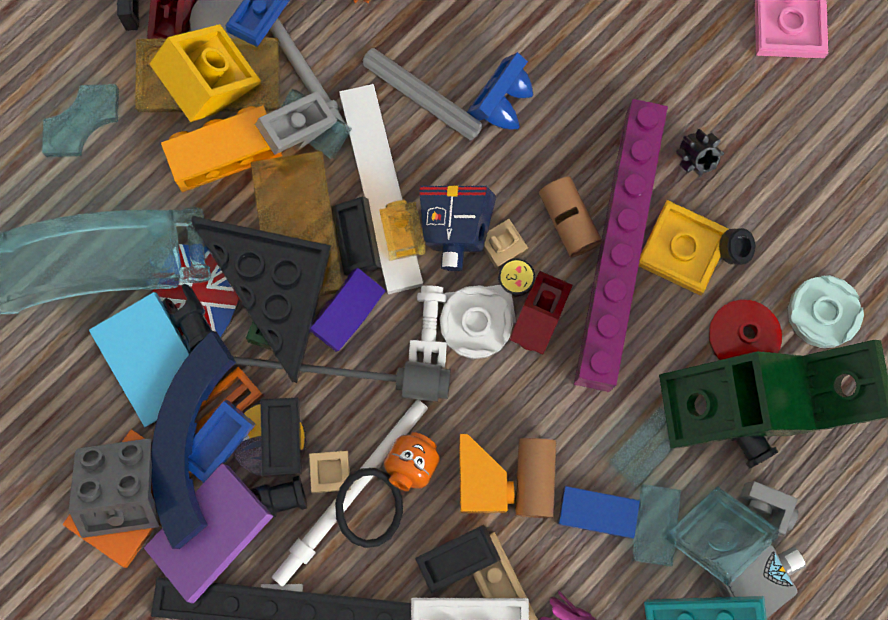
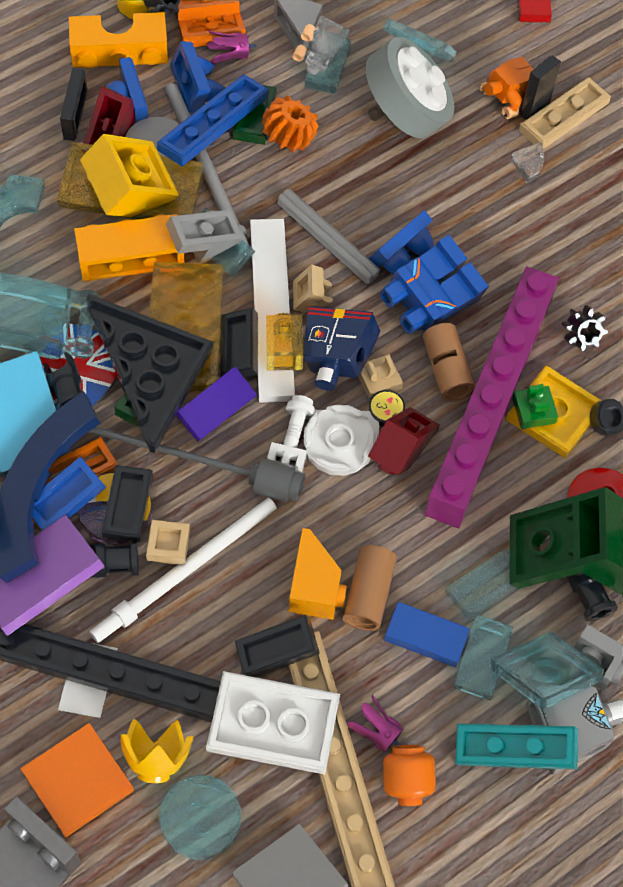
camera: 10 degrees right, 15 degrees down
(340, 511) = (171, 589): black piece -> none
(411, 461) = (250, 549): orange head -> none
(415, 161) = (310, 289): none -> tan tile
(533, 147) = (434, 286): none -> blue hips
(664, 251) = (535, 406): none -> green tile

